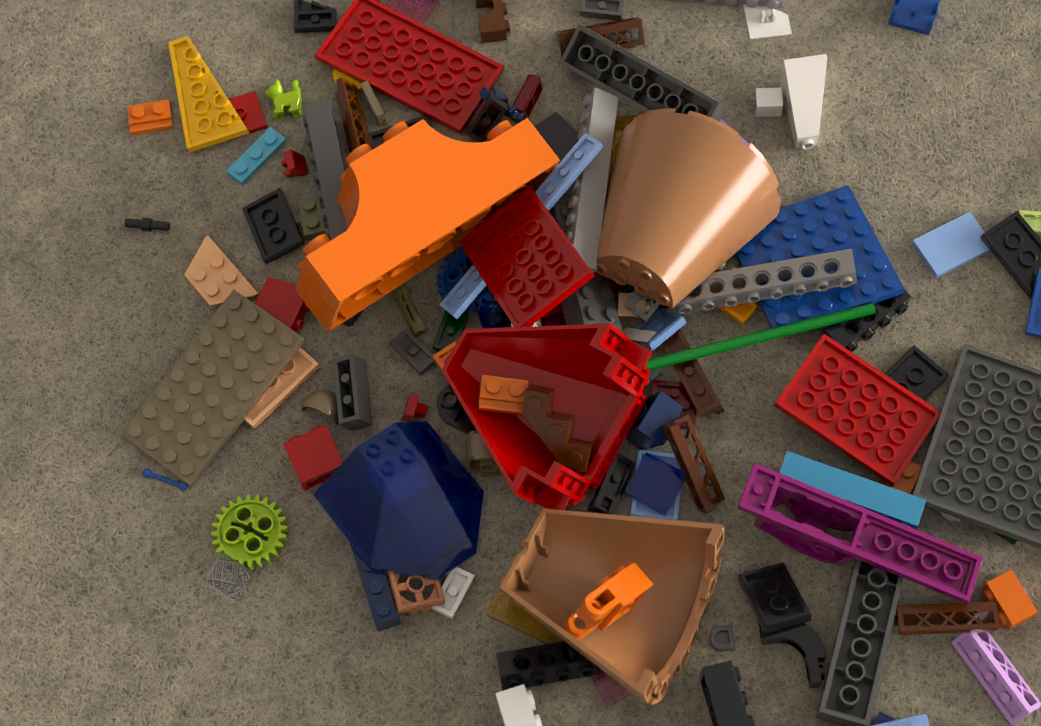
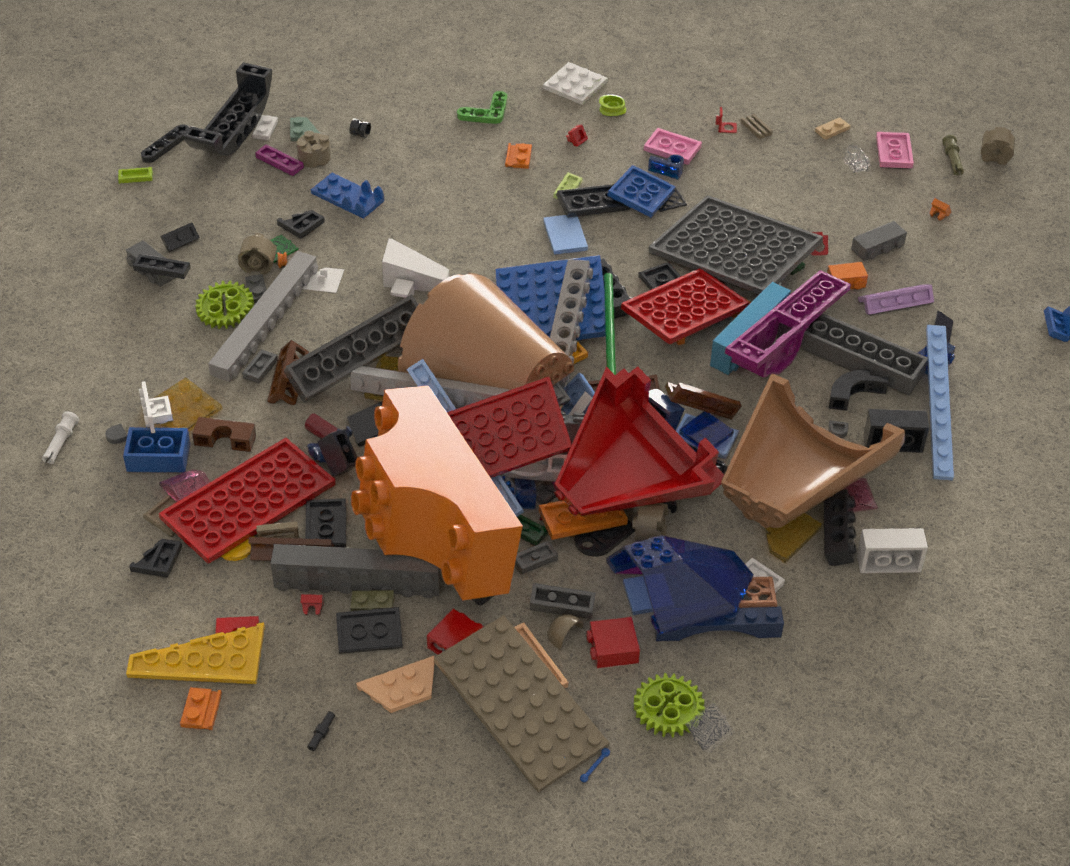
camera: 80 degrees left, 20 degrees down
(256, 156) = (287, 632): medium azure plate -> none
(285, 102) = (243, 598): lime animal -> none
(414, 408) = (589, 567): red tile -> none
(502, 394) = (613, 484): orange plate -> none
(556, 429) = (653, 460): reddish brown brick -> none
(610, 600) = (806, 460): orange brick -> none
(774, 597) = (819, 386): black tile -> none
(947, 614) = (852, 303): reddish brown fence -> none

